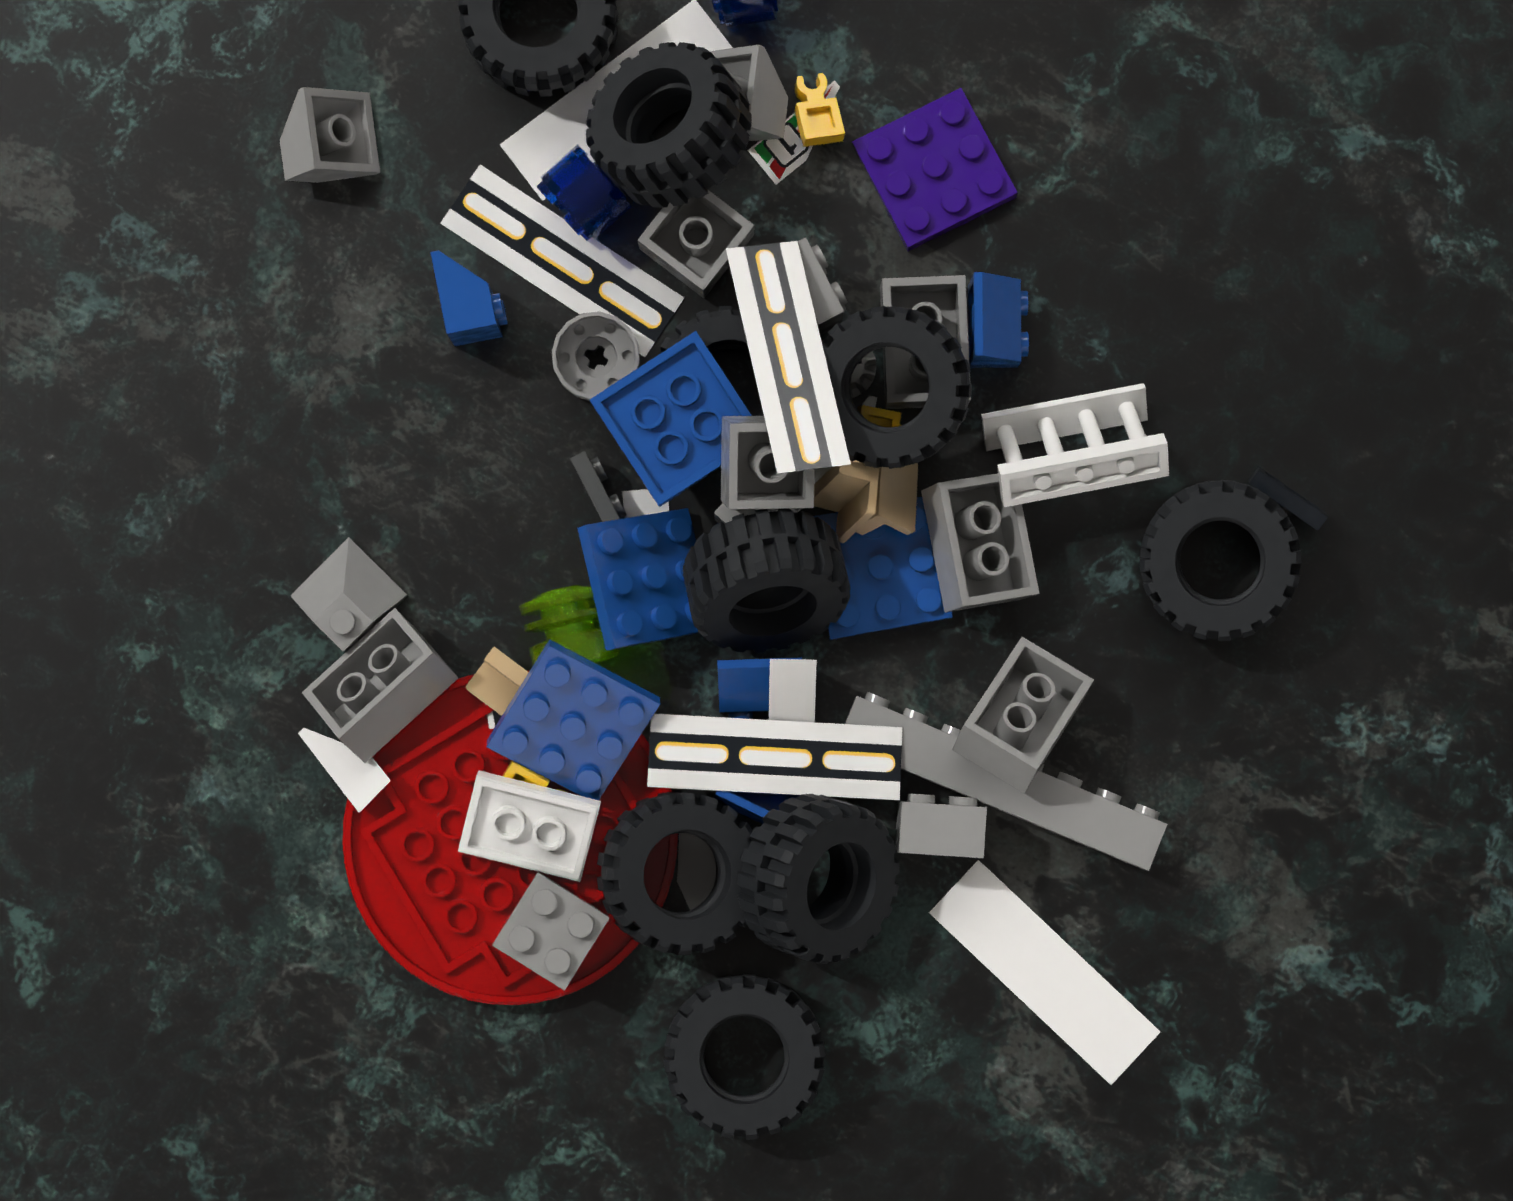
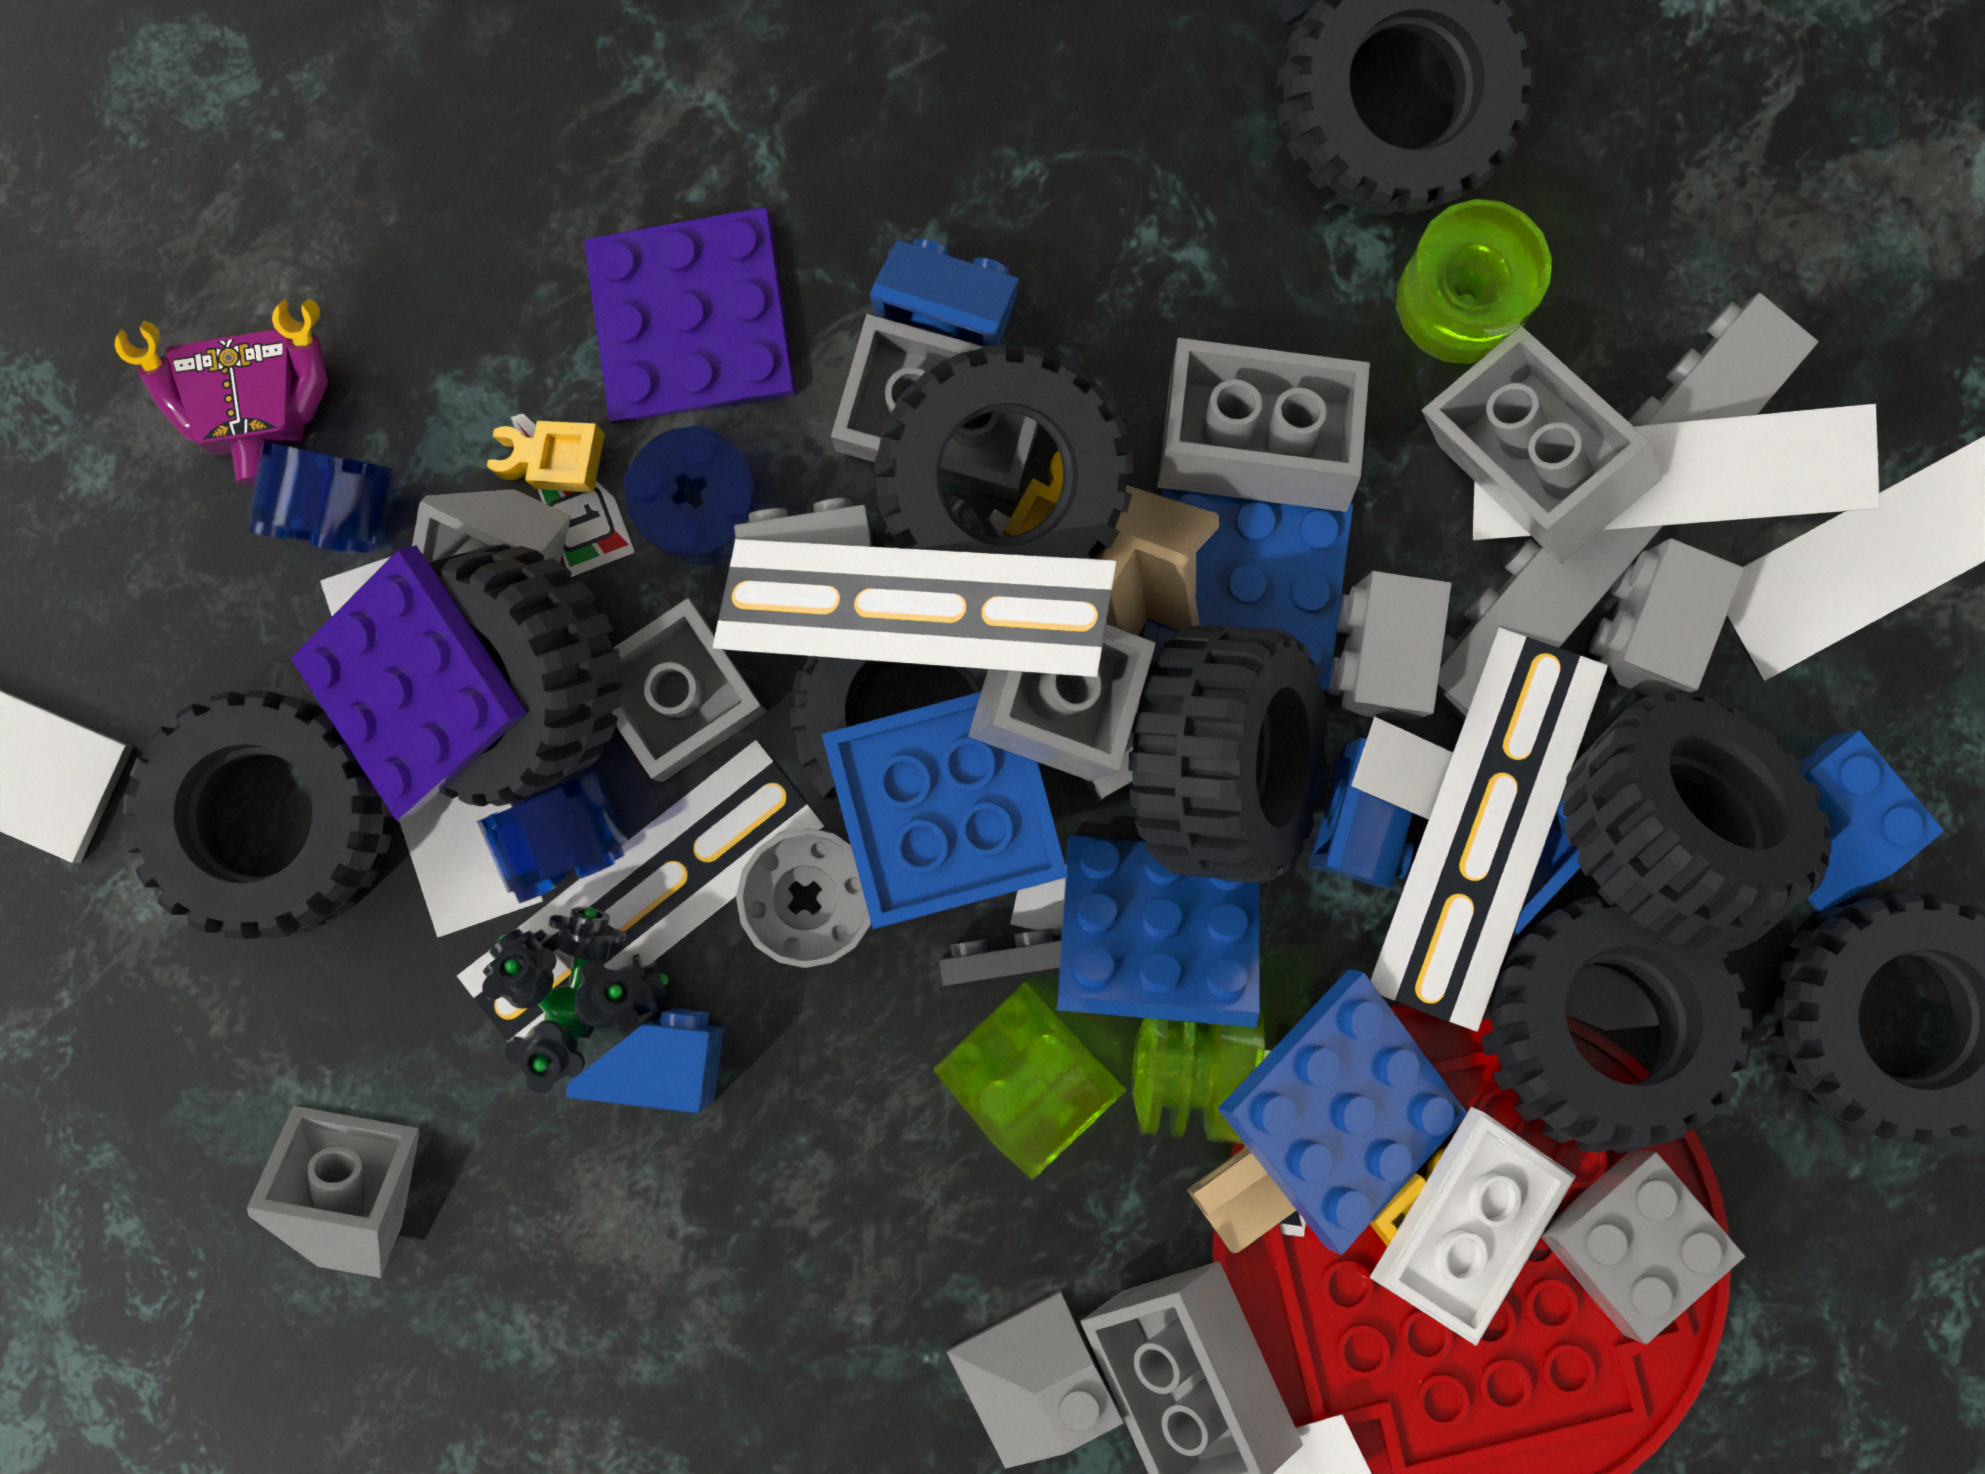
camera: 70 degrees left, 0 degrees up
(493, 249) = (592, 997): none -> black plant
(529, 531) = (1028, 1081): none -> clear neon green slope
(644, 75) = (407, 683): none -> dark purple plate
(820, 184) = (657, 497): none -> clear blue brick
(854, 989) = (1870, 816): none -> blue slope
(867, 663) = (1390, 647): none -> light grey brick
(1045, 838) = (1742, 470): none -> white sticker
(1079, 469) = (1213, 243): white fence -> none
(1137, 642) = (1477, 249): none -> clear neon green wheel

